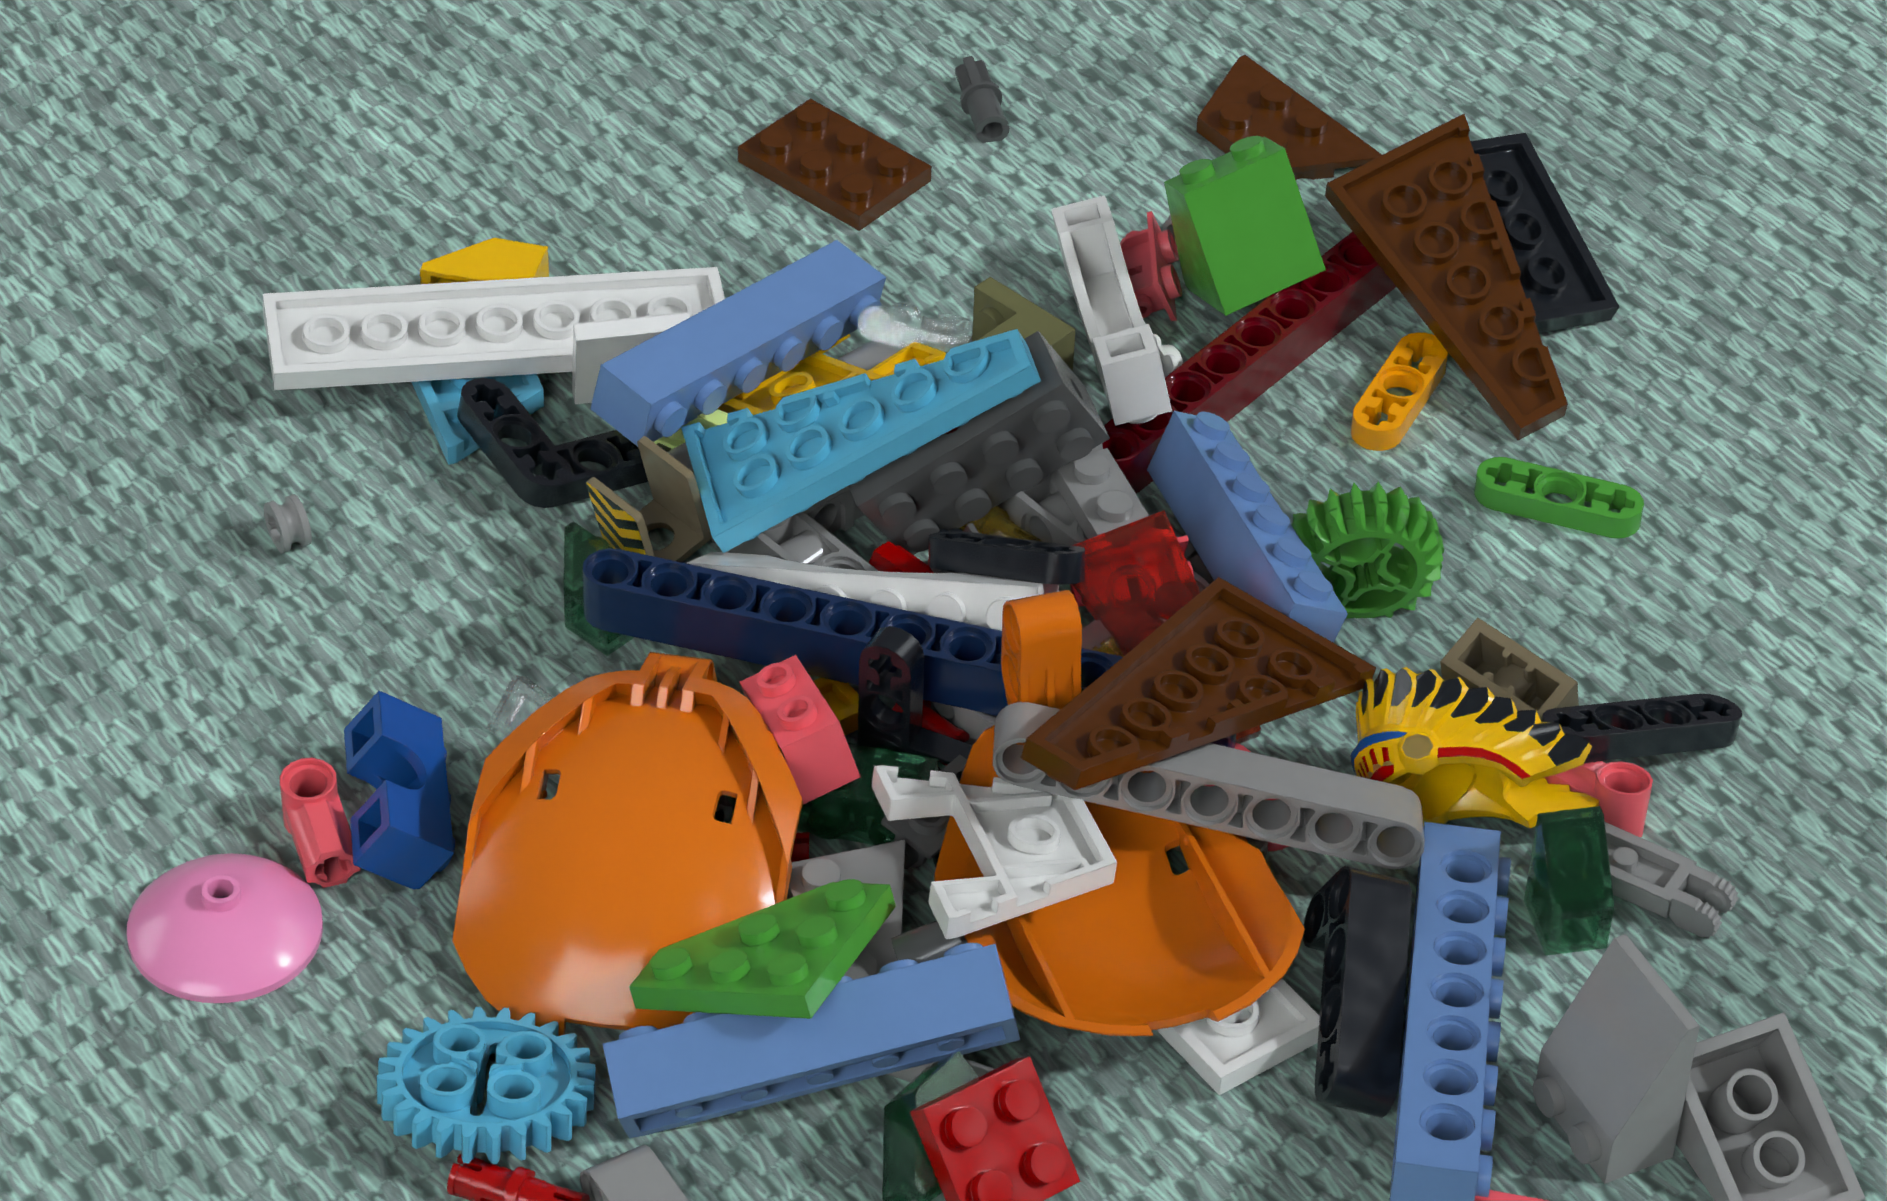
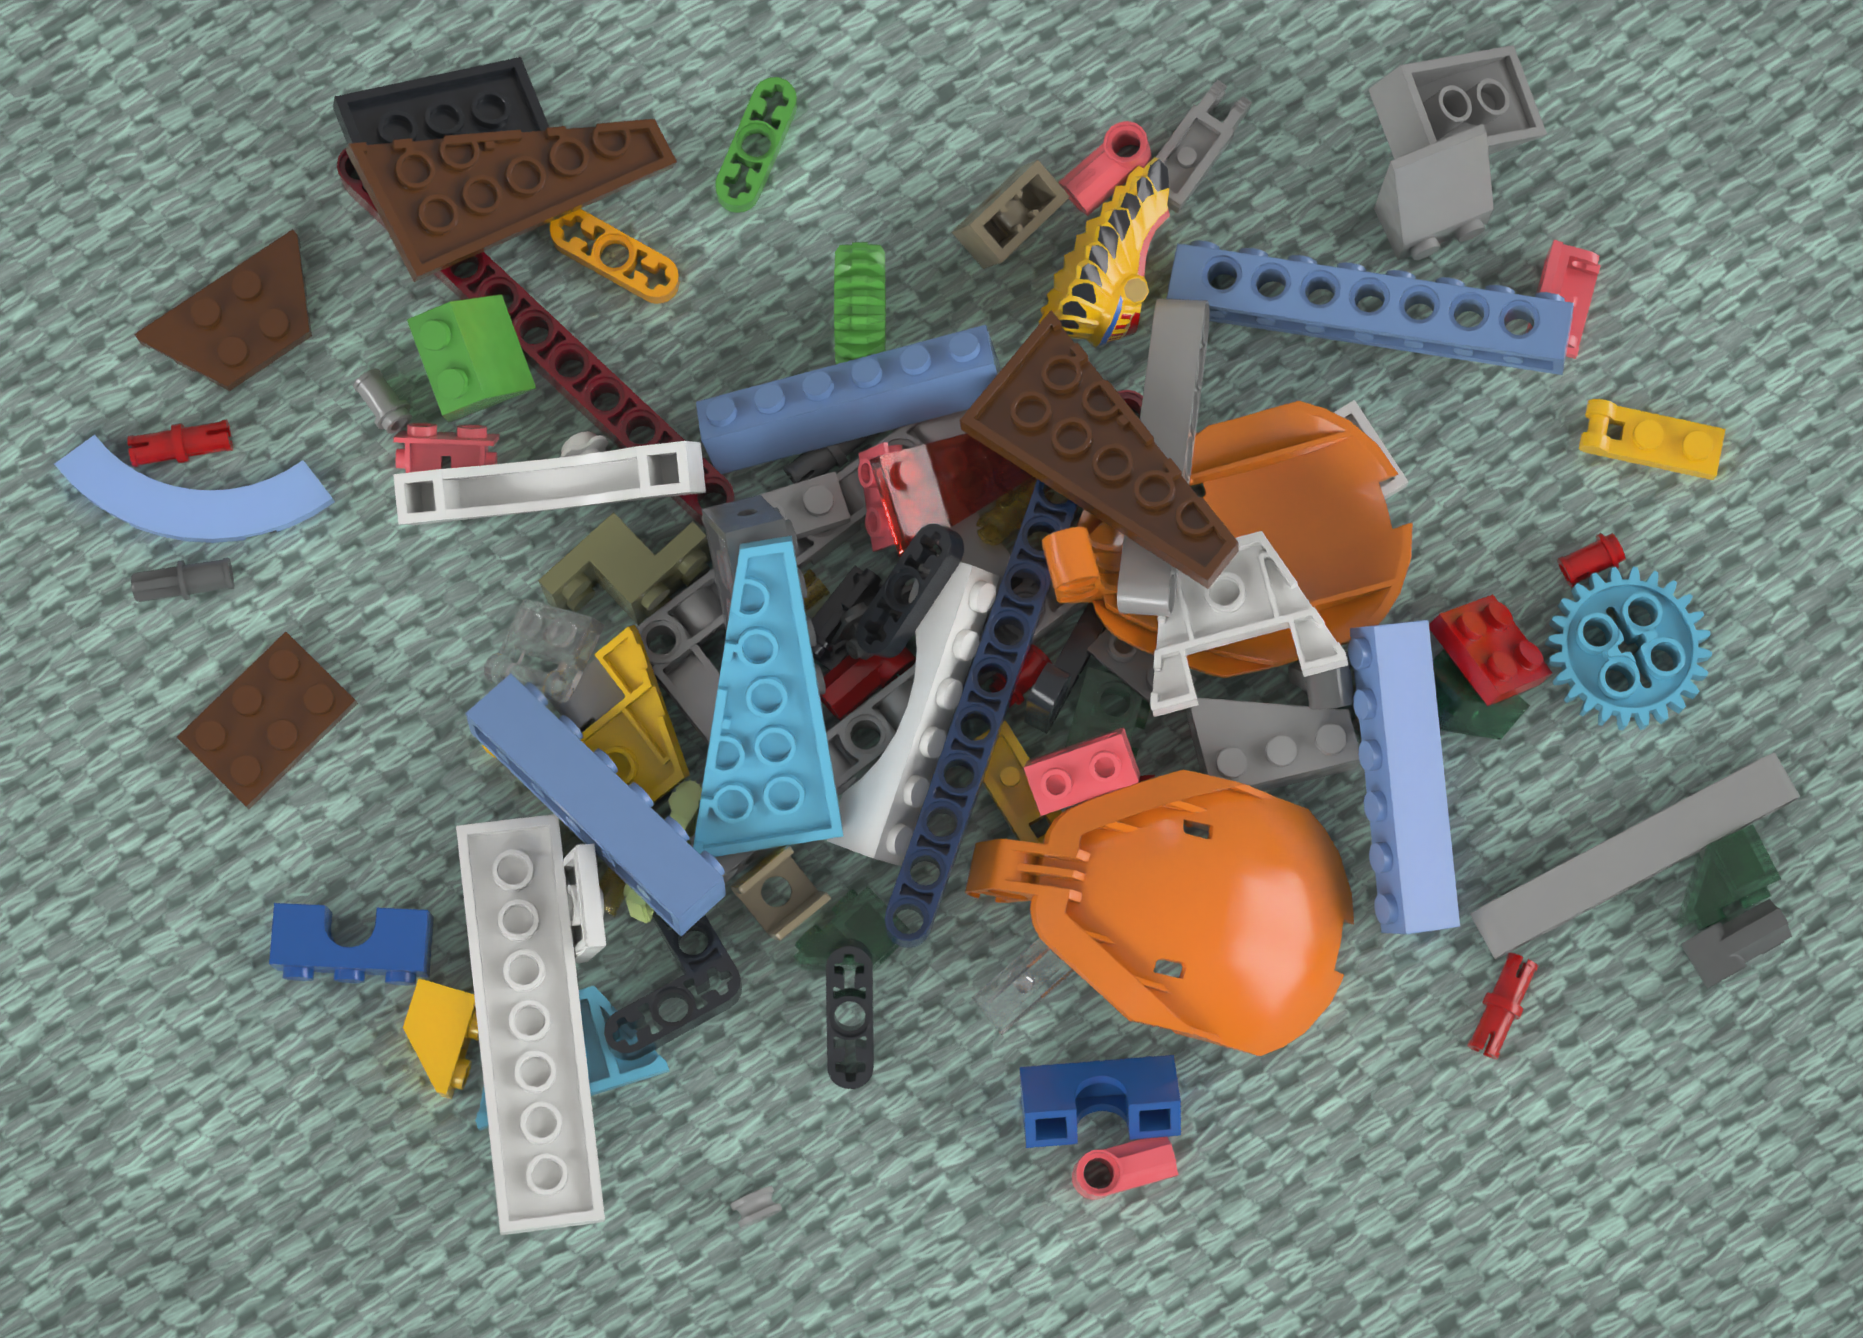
camera: 85 degrees left, 35 degrees up
(224, 928) = (1186, 1264): bright pink dish -> none
(439, 1077) = (1415, 983): medium azure gear -> none
(471, 585) = (837, 1048): none -> black beam
(590, 211) = (396, 948): none -> blue arch
(770, 960) = (1342, 801): bright green plate -> none
(1055, 106) = (193, 513): none -> light blue tile
(1131, 91) = (180, 443): none -> red pin
(1364, 935) = (1330, 364): black beam -> none
(1570, 881) = (1228, 201): clear green slope -> none
(1651, 725) = (1055, 123): black beam -> none

